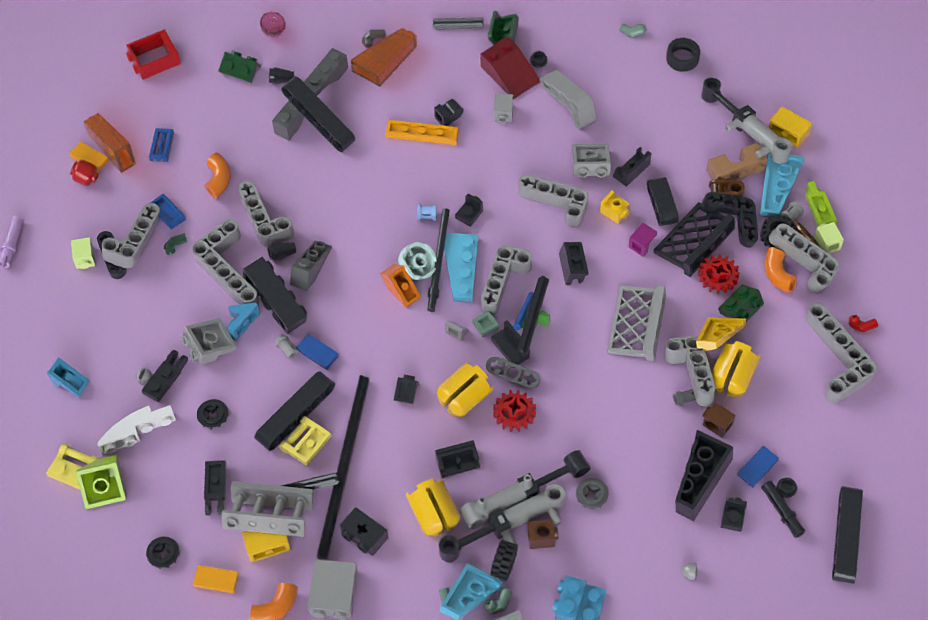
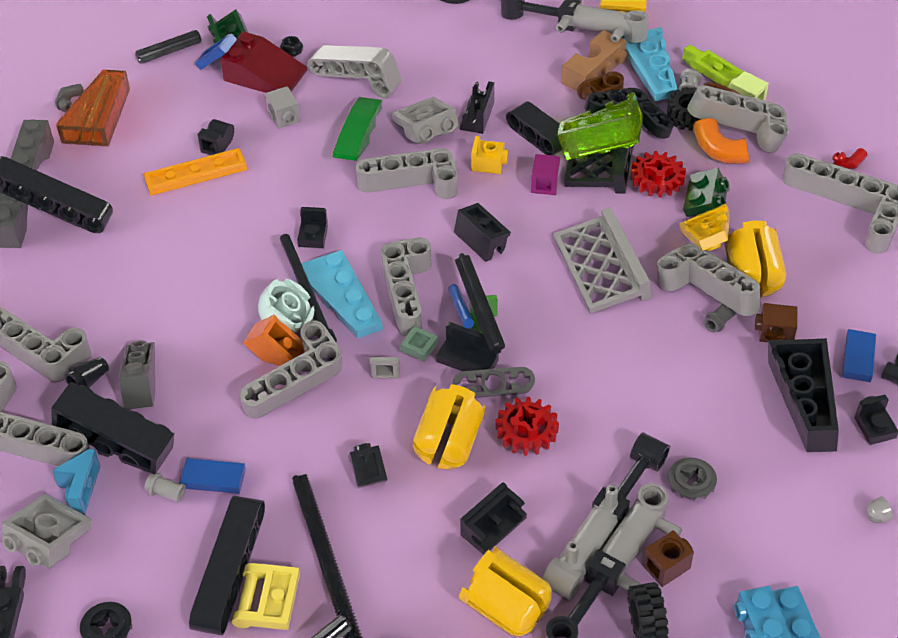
camera: 30 degrees left, 10 degrees down
(394, 308) = (288, 373): none -> light grey beam
(426, 212) = (259, 251): light blue bush -> none
(483, 43) = (215, 51): none -> blue tile
(541, 146) = (357, 129): none -> green slope
(697, 227) = (602, 131): none -> clear neon green wedge

